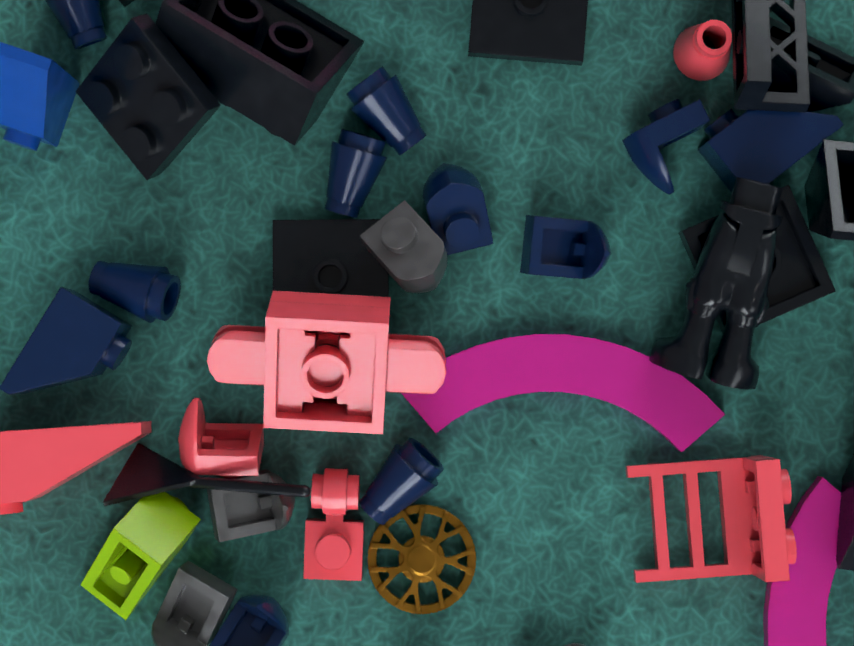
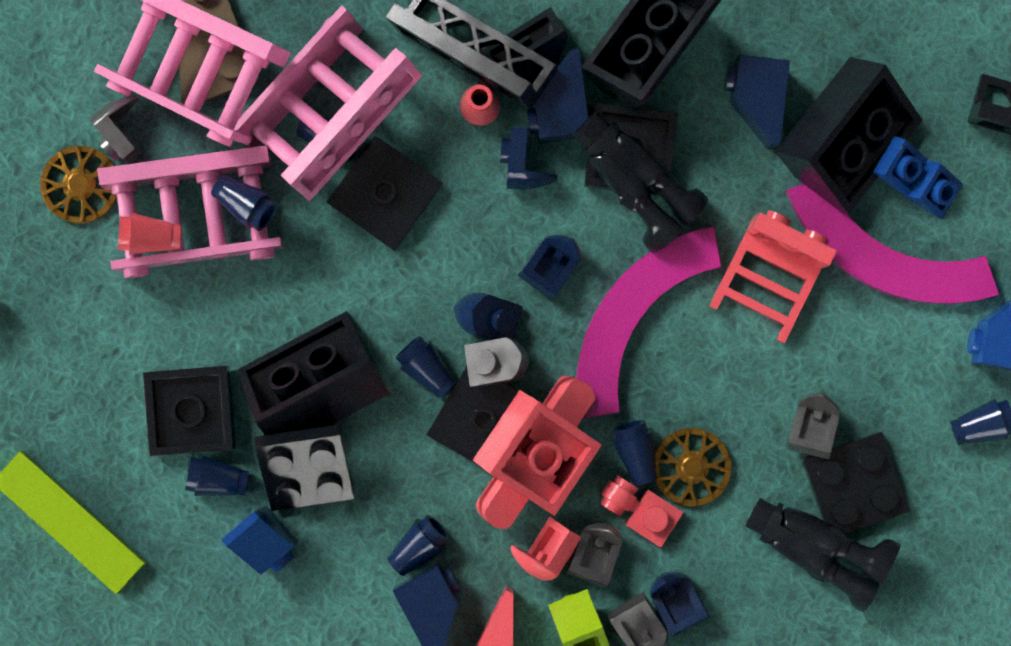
camera: 60 degrees left, 0 degrees up
(152, 474) = (541, 603): black piece -> none
(386, 110) = (400, 323): dark blue cone -> none

